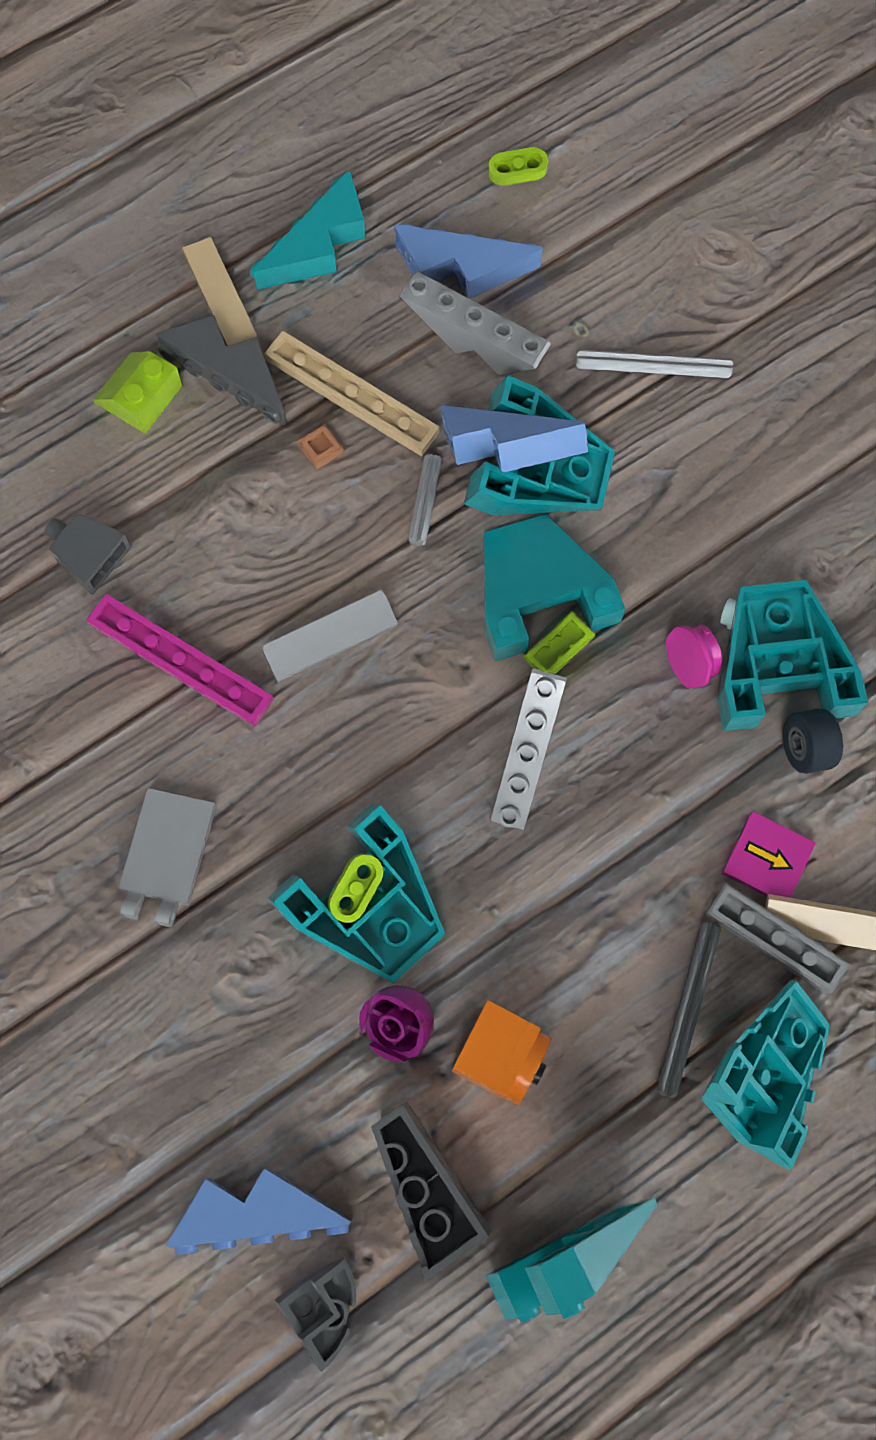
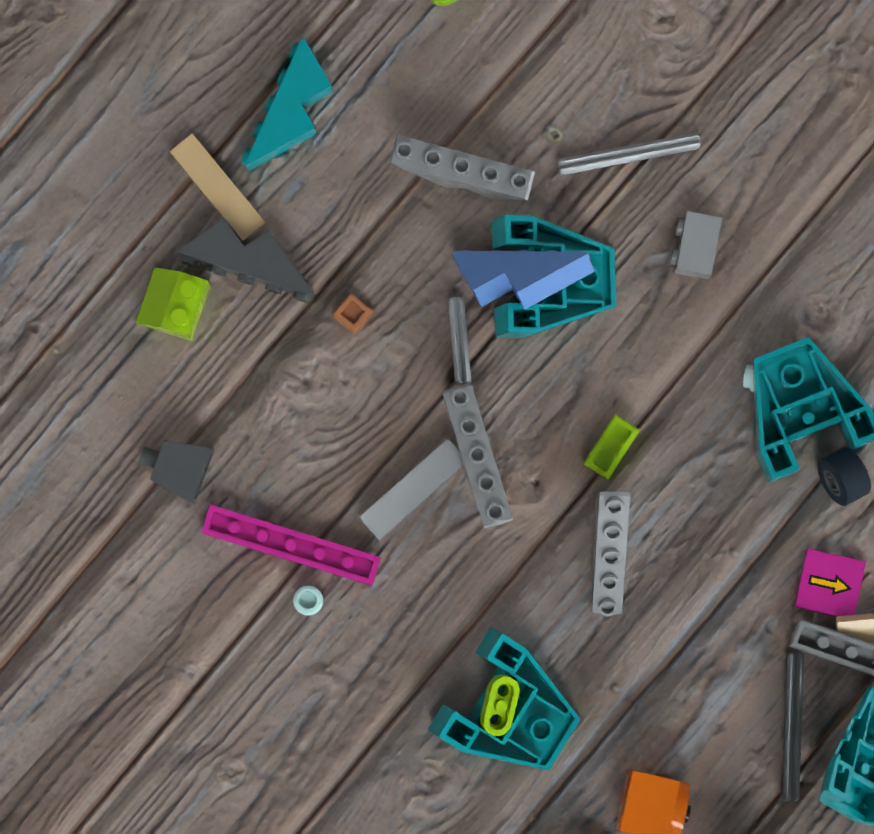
camera: 15 degrees left, 10 degrees up
(165, 853) = (331, 713): light grey tile -> none
(179, 723) = (308, 600): none -> light aqua plate
(352, 393) = (366, 256): tan plate -> none
(397, 1022) = (563, 803): magenta cylinder -> none
(408, 609) = (477, 455): none -> light grey slope
(473, 260) = (440, 95): medium blue slope -> none
(534, 569) = (573, 380): teal wedge -> none
(693, 655) = (728, 427): dark pink hat -> none
(704, 466) = (697, 245): none -> light grey brick

